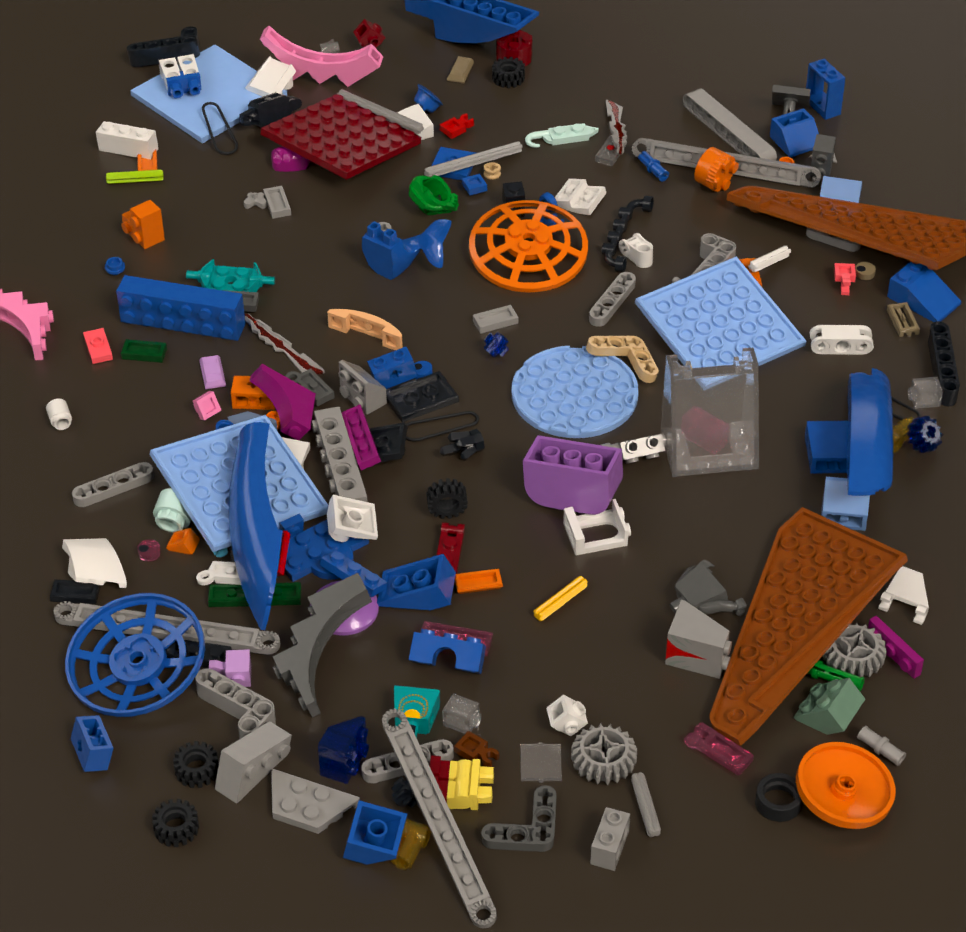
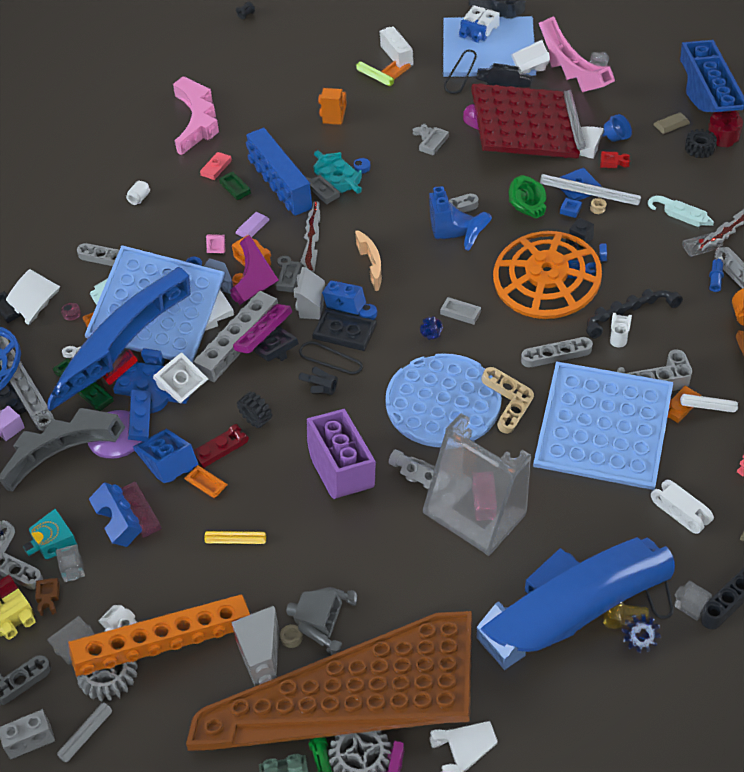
camera: 50 degrees right, 5 degrees up
(114, 266) = (289, 122): blue plate -> none
(241, 259) = (362, 164): none -> blue tile
(369, 34) = (634, 63): dark red brick -> none
(579, 197) = (633, 263): white slope -> none
(615, 517) = (311, 490): white panel -> none
(617, 693) = (148, 633): none -> orange brick
(719, 748) = (176, 752): clear pink plate -> none

